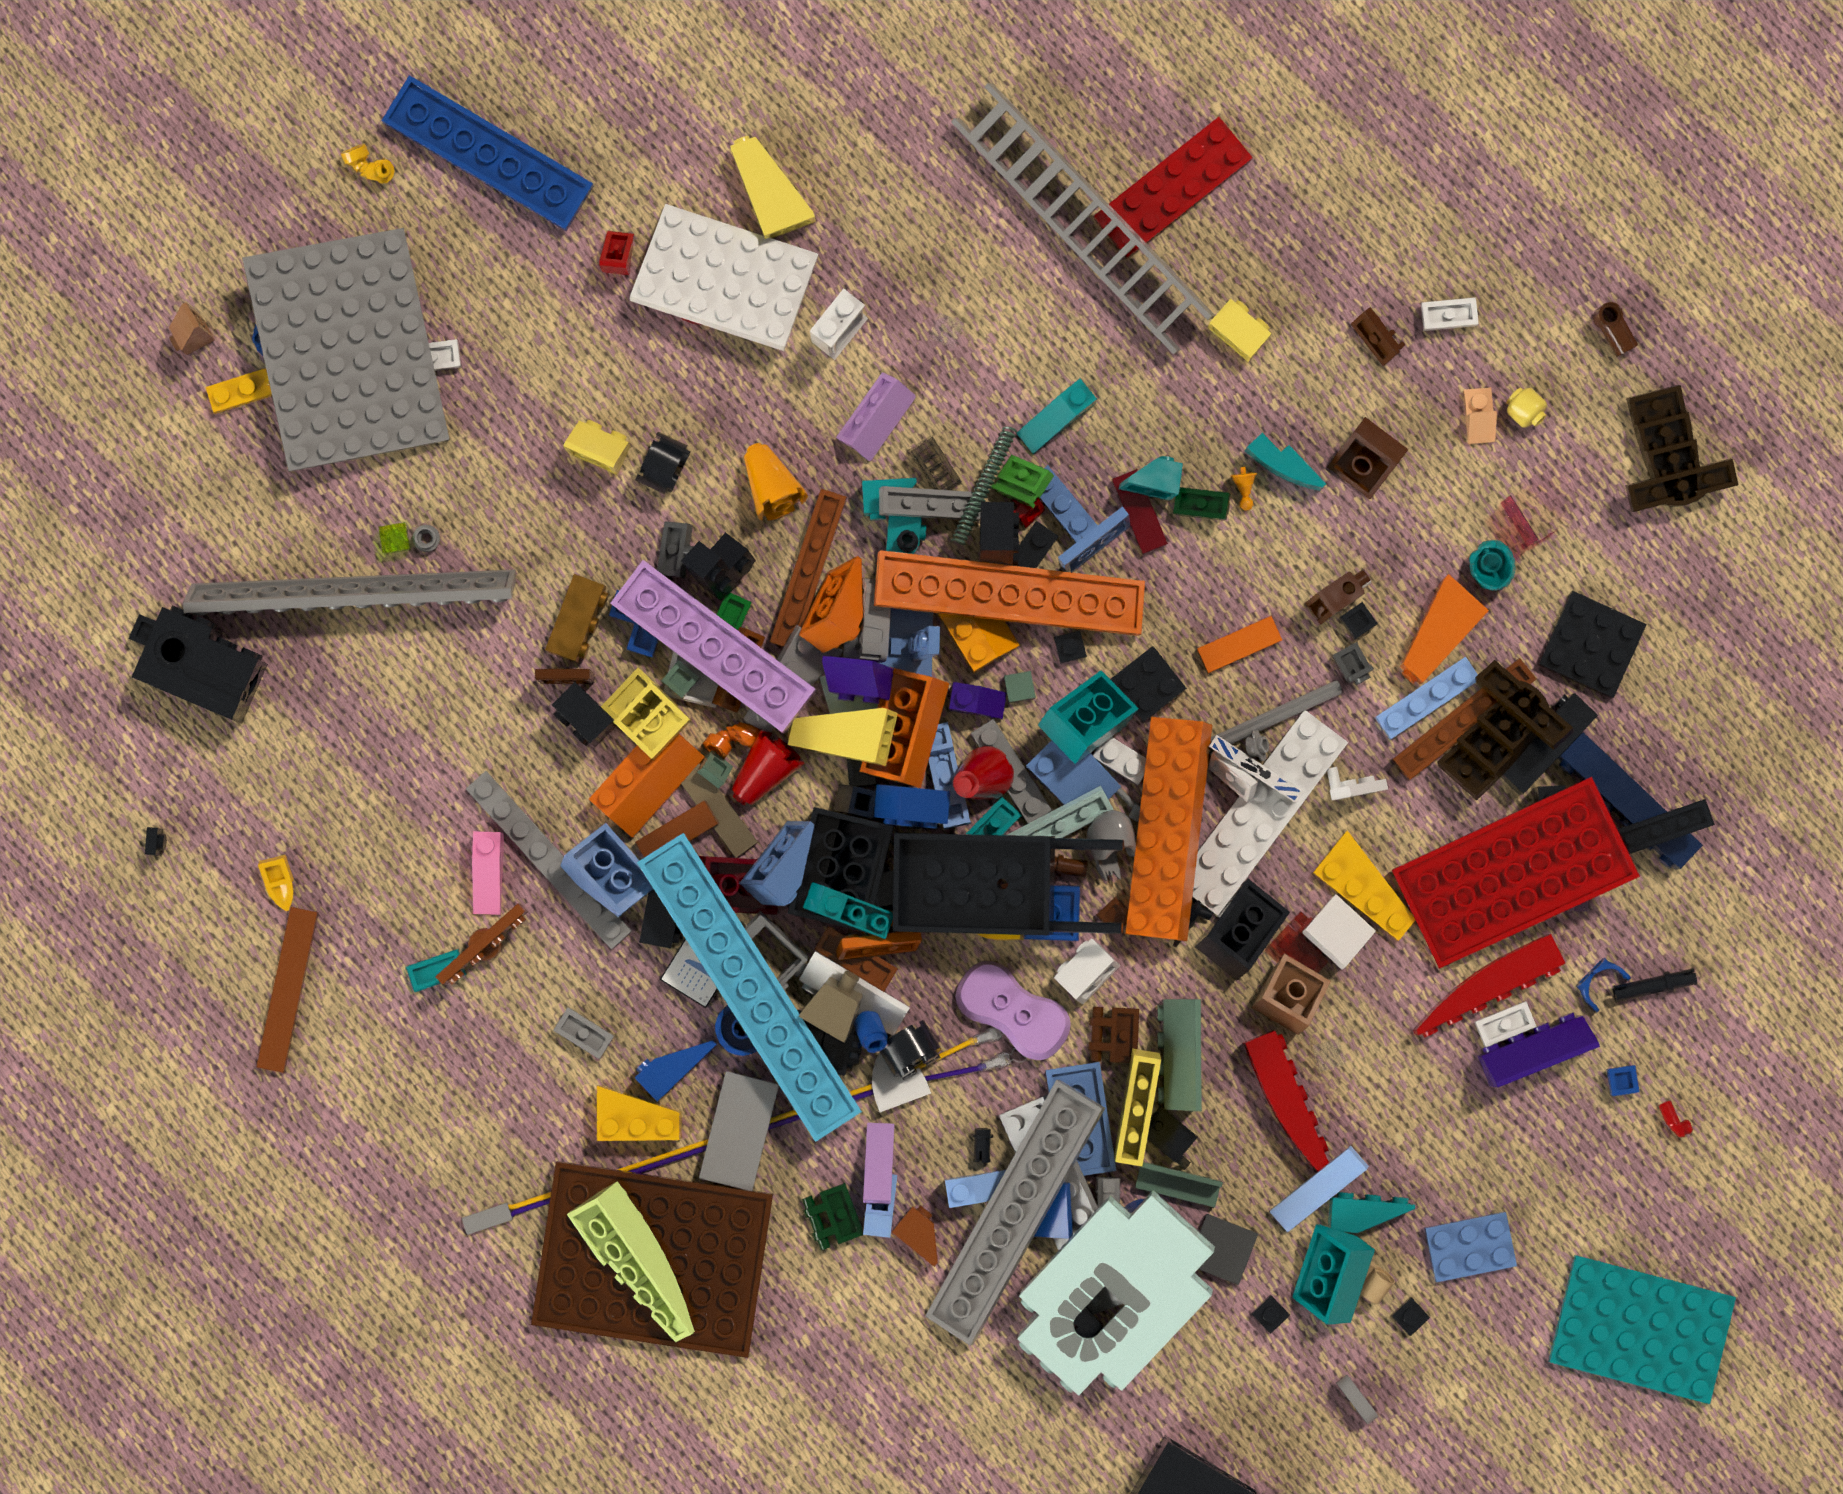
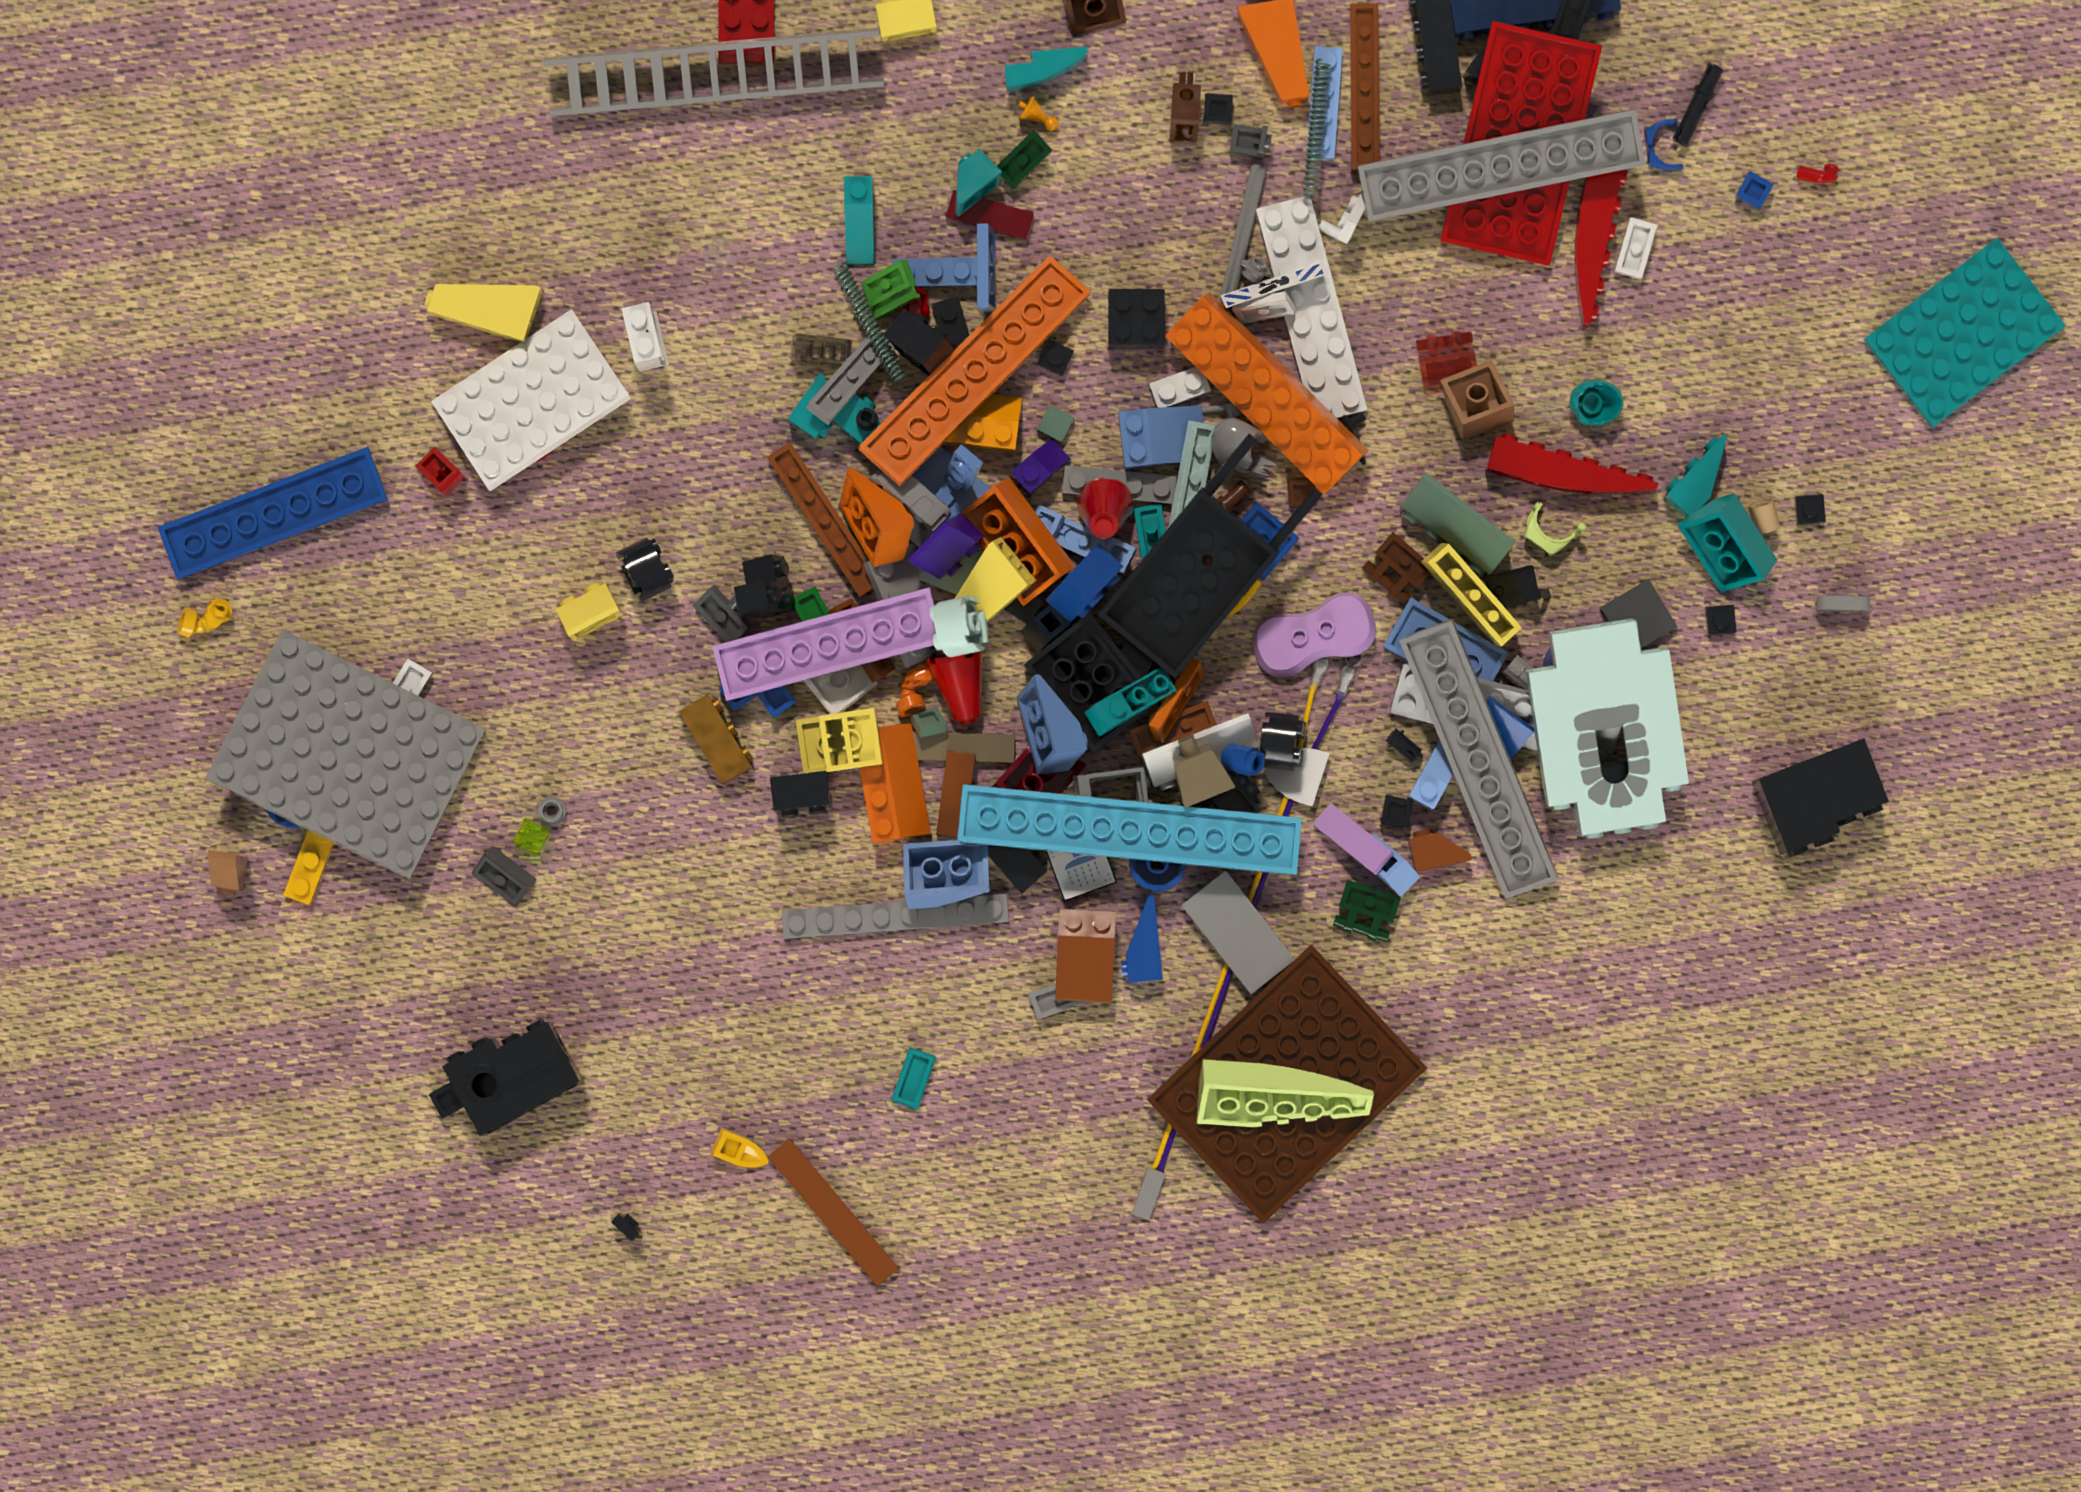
camera: 55 degrees left, 0 degrees up
(349, 541) = (504, 875): none -> dark grey slope
(350, 591) = (548, 904): light grey plate -> none
(483, 945) = (924, 1020): dark orange plate -> none
(487, 872) = (867, 973): bright pink slope -> none
(564, 676) = (756, 784): reddish brown tile -> none
(629, 1028) = (1085, 955): none -> dark orange slope
(634, 1119) = (1162, 1009): yellow wedge -> none
(680, 679) = (833, 692): sand green plate -> none
(771, 483) = (730, 493): light orange cone -> none
(802, 735) = (959, 626): none -> light aqua brick
(876, 416) = (742, 366): lavender panel -> none
(926, 1179) = (1396, 811): none -> black plate
(1086, 970) = (1329, 549): white brick -> none
(1088, 716) = (1125, 385): teal brick -> none
(1178, 1184) = (1558, 611): sand green panel -> none
(1222, 1128) = (1546, 543): none -> yellowish green helmet
(1239, 644) = (1161, 220): orange tile -> none
(1242, 930) = (1394, 399): black slope -> none
(1319, 1188) = (1651, 500): light blue tile -> none
(1338, 931) = (1456, 322): white tile -> none
(1348, 738) = (1314, 130): none -> sand green piece
(1361, 884) = (1431, 275): yellow wing -> none
(1362, 1087) = (1596, 402): none -> teal hair
(1470, 1246) = (1791, 417): medium blue plate -> none
(1486, 871) = (1501, 165): none -> light grey plate
(1502, 731) = (1399, 64): dark brown slope -> none
(1538, 1050) = (1677, 238): dark purple slope -> none

